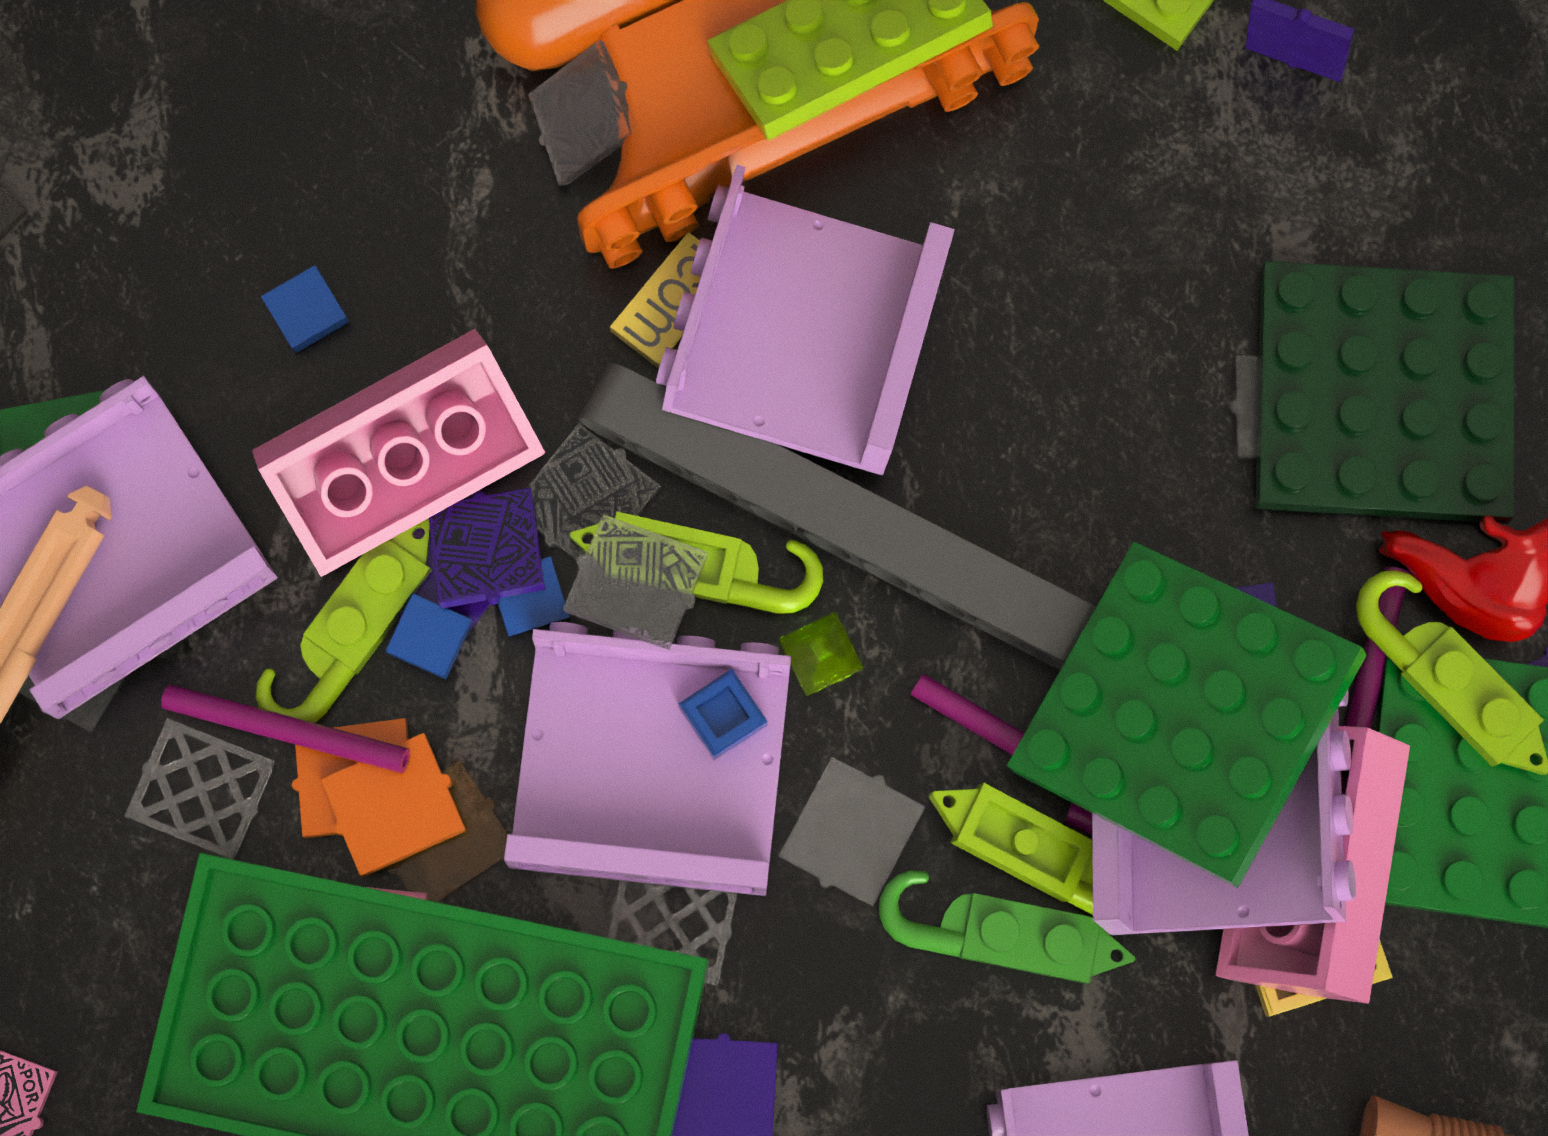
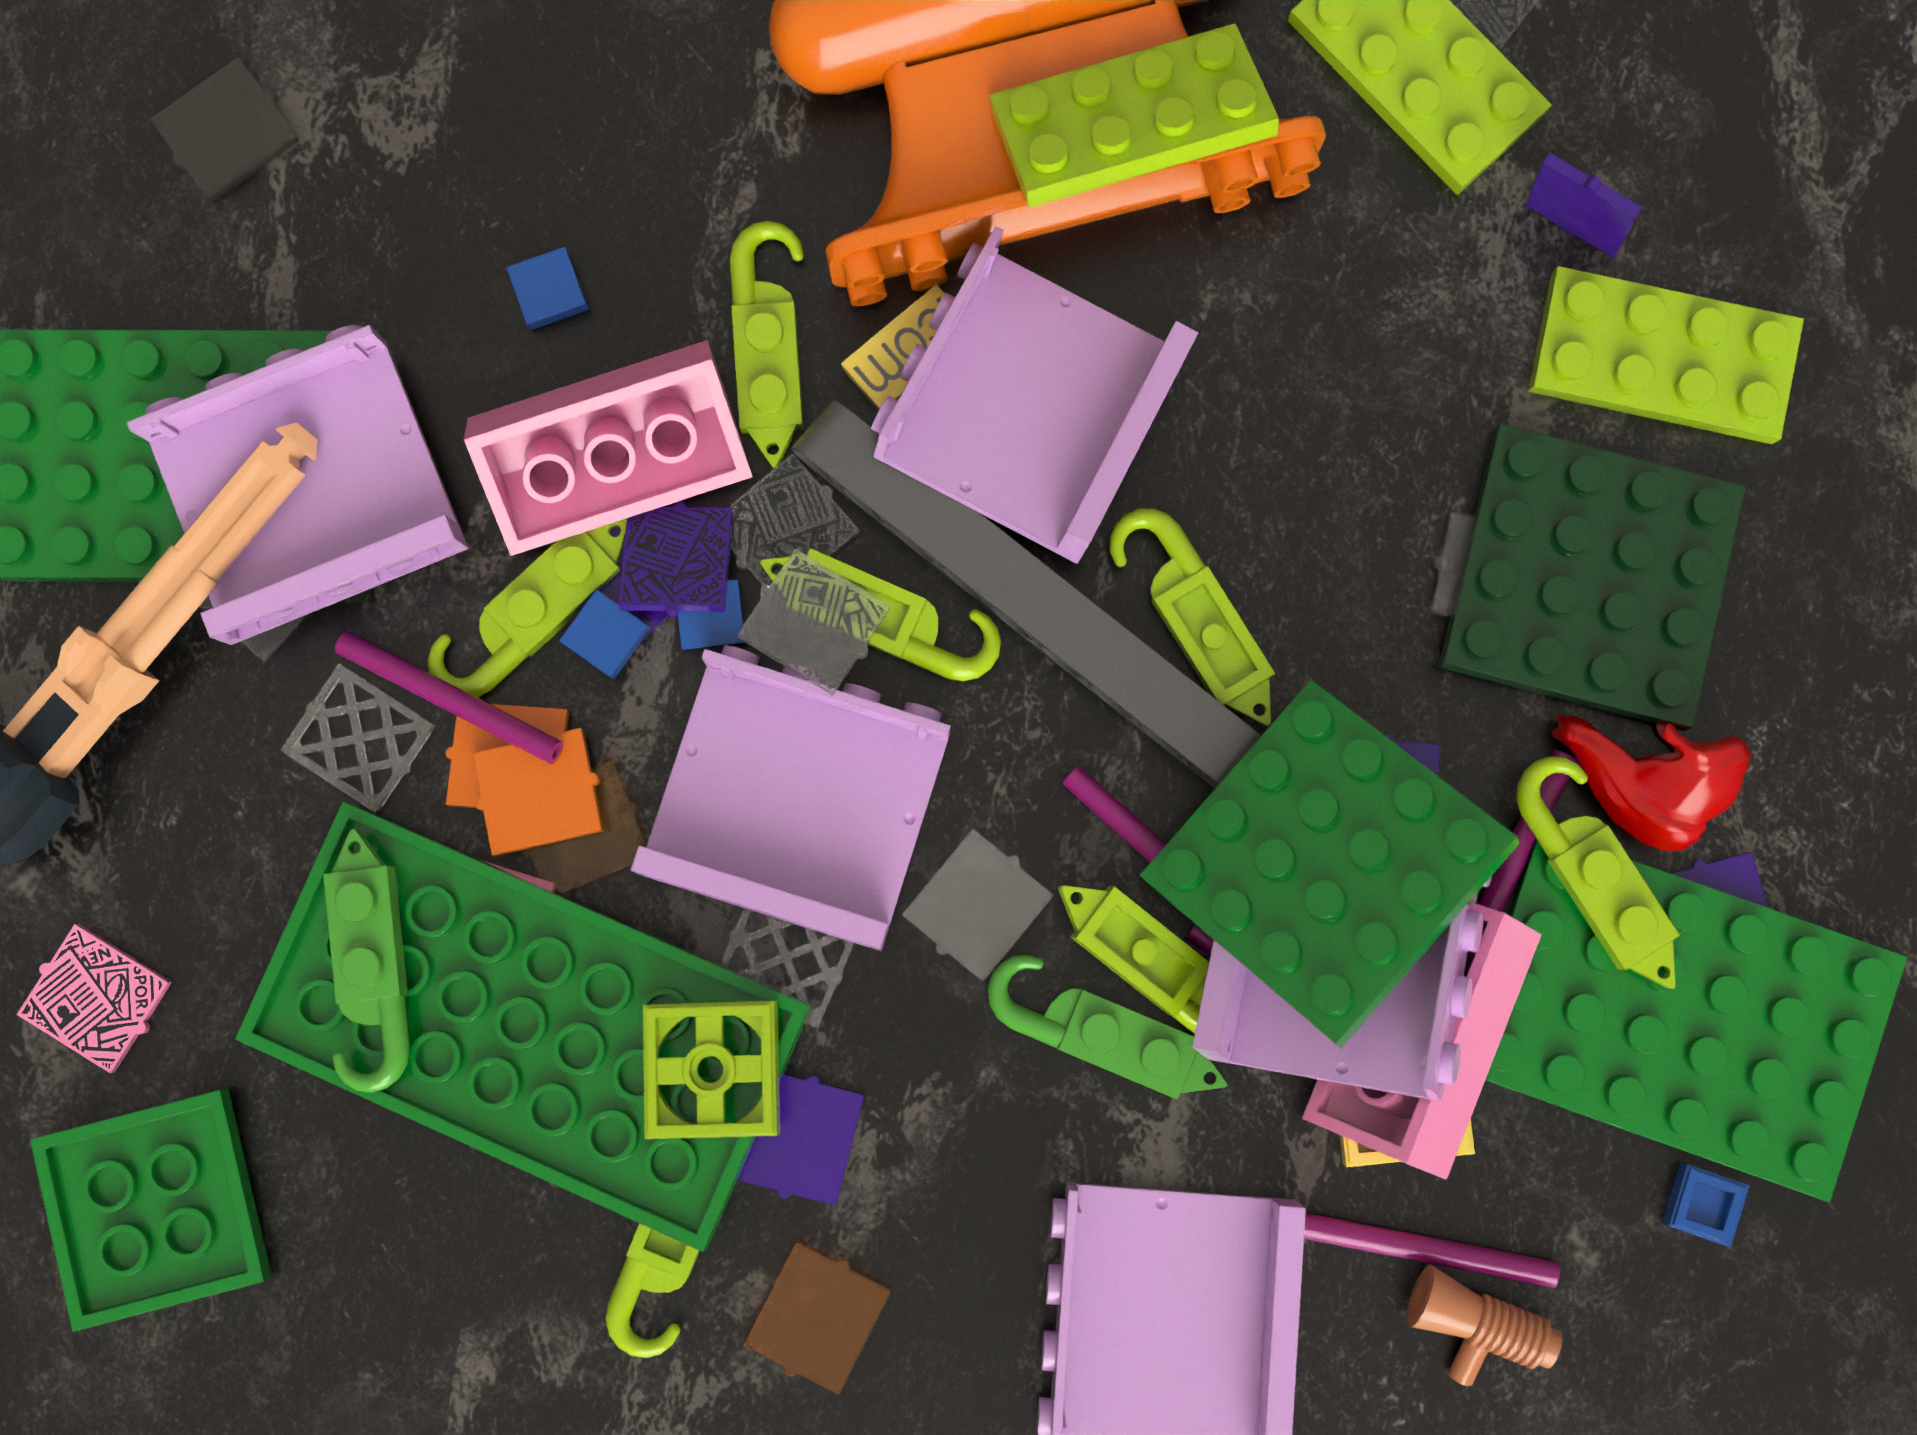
camera: 15 degrees right, 5 degrees up
(257, 1002) = (368, 958): none -> bright green plate
(531, 323) = (765, 344): none -> lime plate
(564, 1001) = (661, 1120): none -> lime piece
(582, 113) = (855, 145): clear piece -> none
(723, 714) = (874, 767): blue tile -> none
(821, 654) = (982, 726): clear neon green slope -> none
(1014, 505) = (1201, 617): none -> lime plate
(1370, 1082) = (1431, 1250): none -> magenta piece
(1410, 165) = (1666, 355): none -> lime plate

